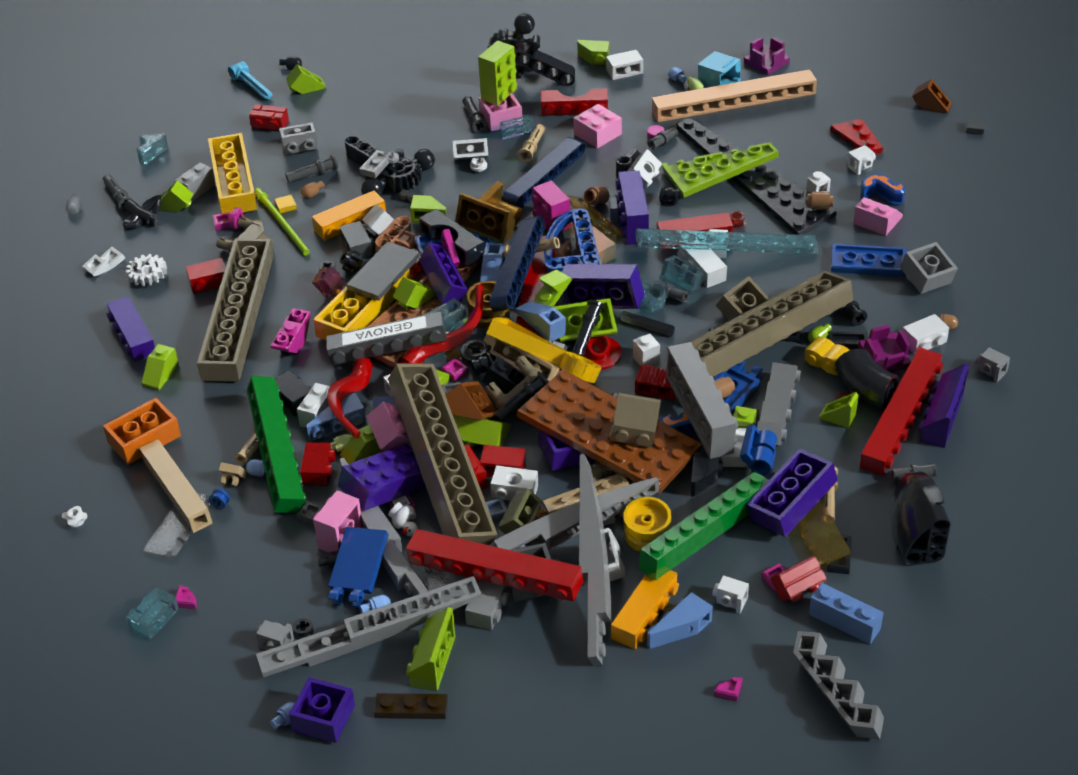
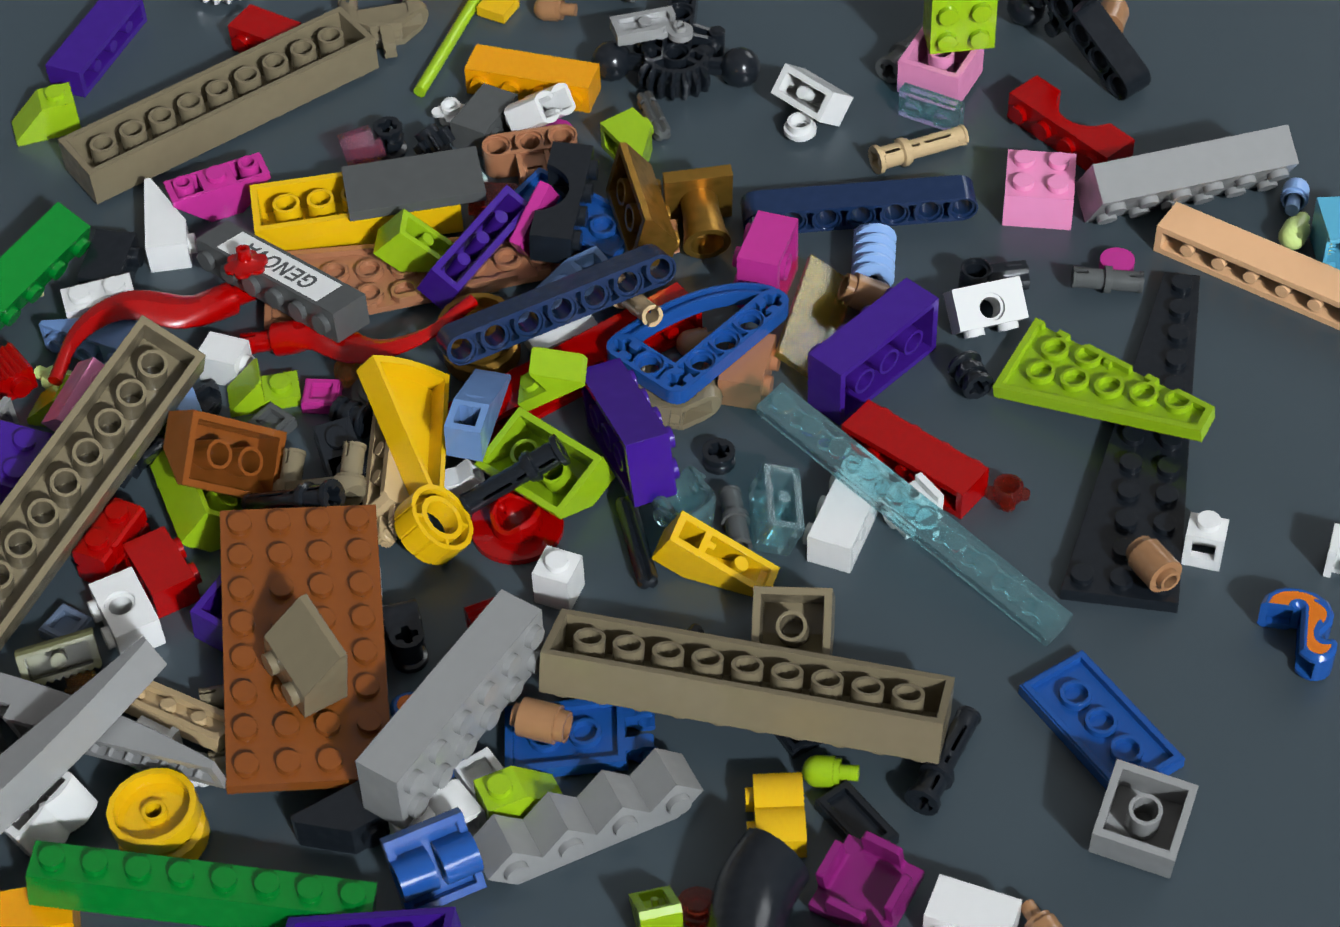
camera: 50 degrees right, 5 degrees up
(298, 363) = (166, 232): none -> white slope
(334, 249) = (447, 110): none -> white plate
(370, 338) = (245, 263): none -> red plant
(453, 314) = (399, 312): clear light blue brick -> none
(577, 181) = (874, 251): none -> light blue piece
(593, 51) = (1228, 72): lime slope -> none
(624, 64) = (1231, 115): white brick -> none
(645, 86) = (1186, 174): none -> light grey brick
(682, 306) = (711, 557): none -> yellow slope
(876, 216) = (1226, 665): bright pink slope -> none

